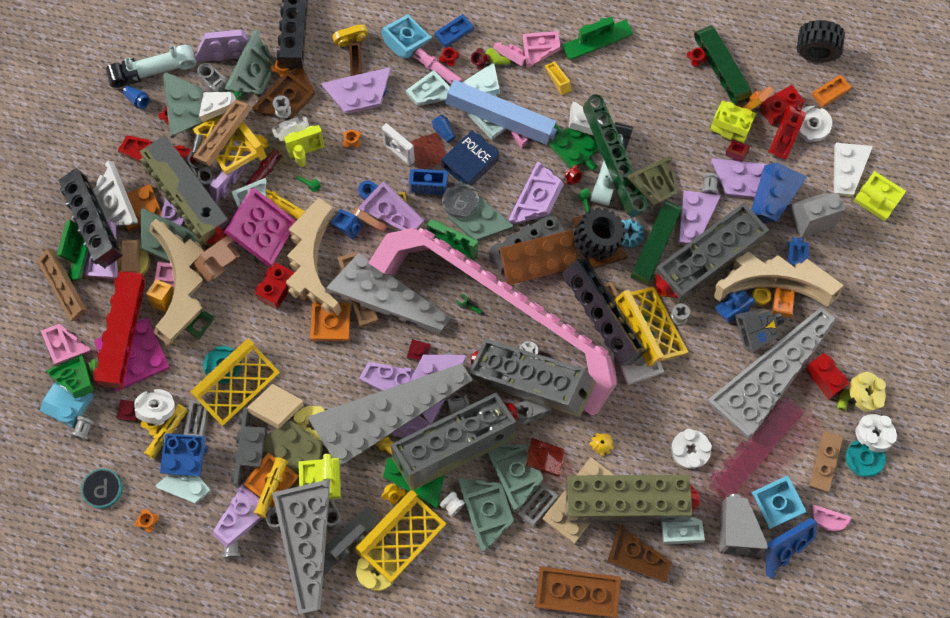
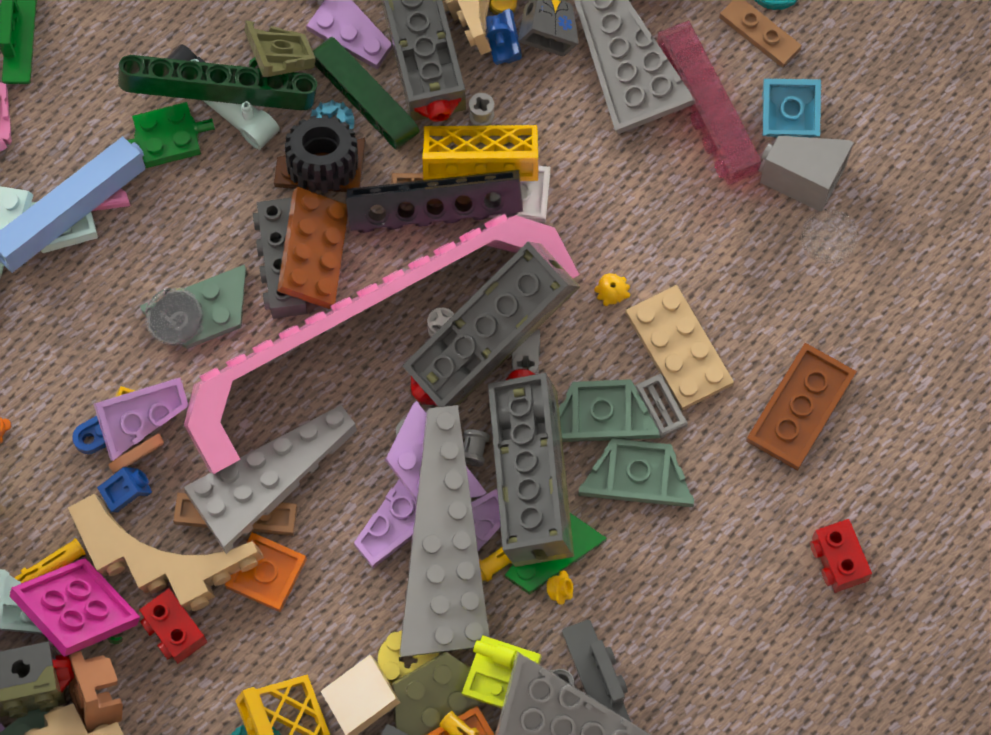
camera: 65 degrees left, 0 degrees up
(313, 185) = (39, 512): green hand -> none
(370, 580) = (644, 666): light yellow plate -> none
(387, 524) = (603, 613): yellow fence -> none
(398, 144) = (43, 363): white tile -> none
(417, 350) = (368, 470): dark red plate -> none
(428, 151) = (68, 332): clear red piece -> none
(428, 181) = (121, 347): blue brick -> none
(443, 128) = (44, 294): blue cone -> none
(452, 504) = (611, 514): white wheel -> none
(455, 239) = (236, 342): green wing -> none
(466, 304) = (331, 375): green hand -> none
(470, 158) = (114, 277): dark blue brick -> none
(537, 196) = (218, 211): lavender wing -> none
(545, 457) = (601, 366): clear red piece -> none
(559, 78) = (50, 109): yellow piece -> none
(573, 175) = (211, 153): red plate -> none
(578, 120) = (131, 107): white wing -> none
(583, 196) = (246, 155): green hand -> none
(630, 498) = (710, 282): olive piece -> none
(635, 556) = (783, 314): reddish brown wing -> none
(683, 532) = (770, 243): light aqua wing -> none
(693, 460) = (677, 168): white plate -> none
(785, 545) = (848, 119): blue wing -> none
(829, 519) = (836, 63): bright pink tile -> none

